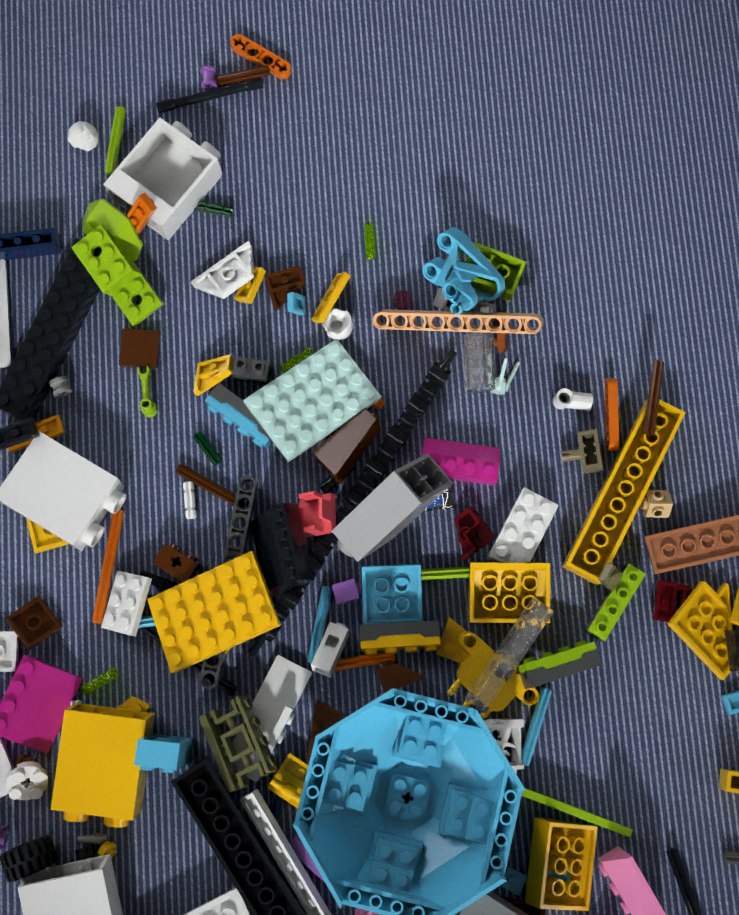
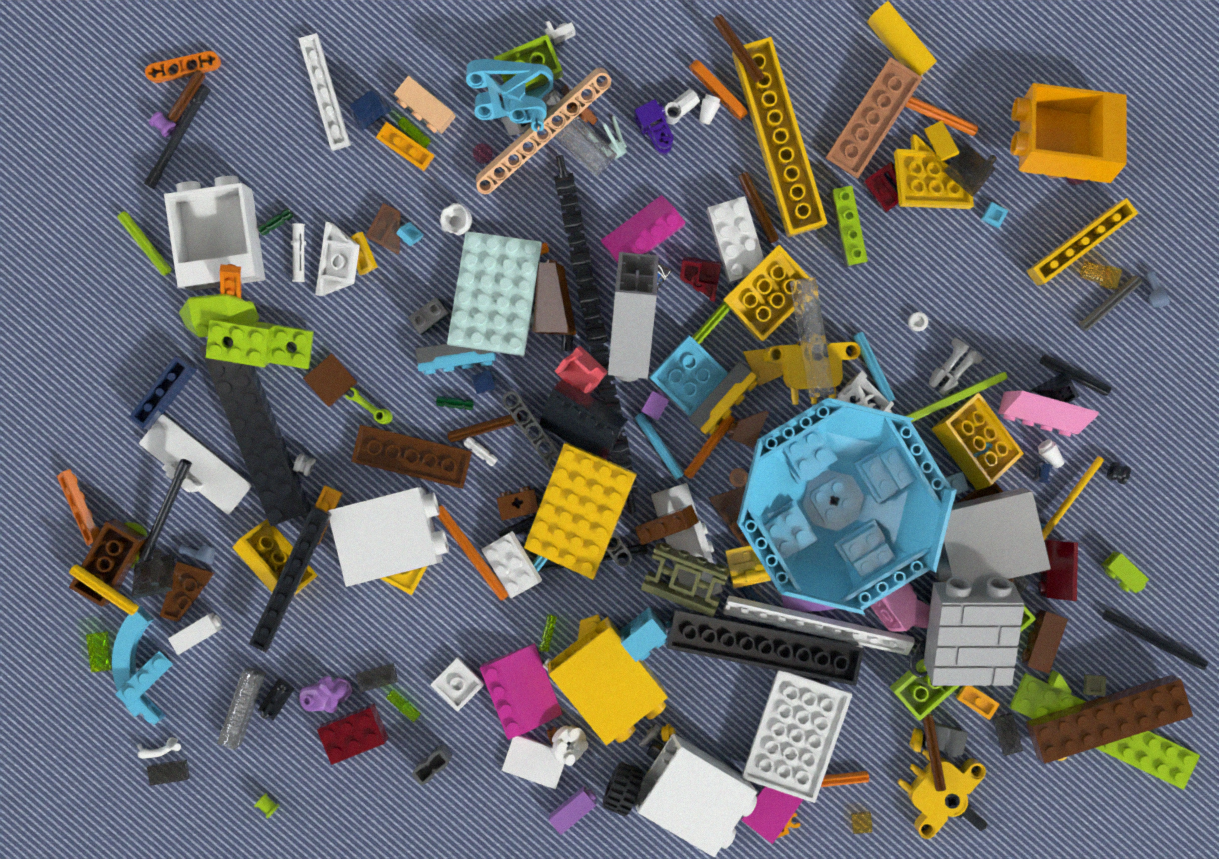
camera: 40 degrees left, 10 degrees up
(33, 623) = (461, 641): reddish brown tile -> none
(83, 136) = (118, 264): white hair -> none
(138, 456) = (411, 456): none -> reddish brown plate
(212, 372) = (402, 346): yellow wing -> none
(214, 238) = (298, 252): none -> white pin
(242, 453) = (484, 382): none -> dark blue brick
(265, 687) = (666, 524): none -> reddish brown brick
(296, 359) = (452, 276): clear neon green axle -> none
(330, 297) = (430, 204): yellow tile -> none
(330, 649) = (684, 455): white brick -> none
(336, 159) = (324, 91): none -> white plate
(352, 705) = (738, 477): none -> nougat plate
(353, 244) = (405, 146): none -> light orange plate
(354, 196) = (369, 109): none -> dark blue torso
(394, 230) = (424, 105): none -> light nougat brick
(539, 273) = (563, 32): none -> white bracket
(541, 389) = (652, 122): none -> dark purple brick
(559, 665) = (852, 309): piece -> none
(561, 524) = (758, 207): none -> reddish brown axle
(584, 783) = (943, 372): none -> light grey piece
(588, 452) = (728, 136): dark tan brick -> none
(592, 421) = (708, 108): none -> white cone
(601, 725) = (917, 321): none -> white tile
(610, 576) = (829, 212): olive plate -> none
(657, 503) = (812, 125): tan brick -> none
(663, 886) = (1058, 388): none -> black slope

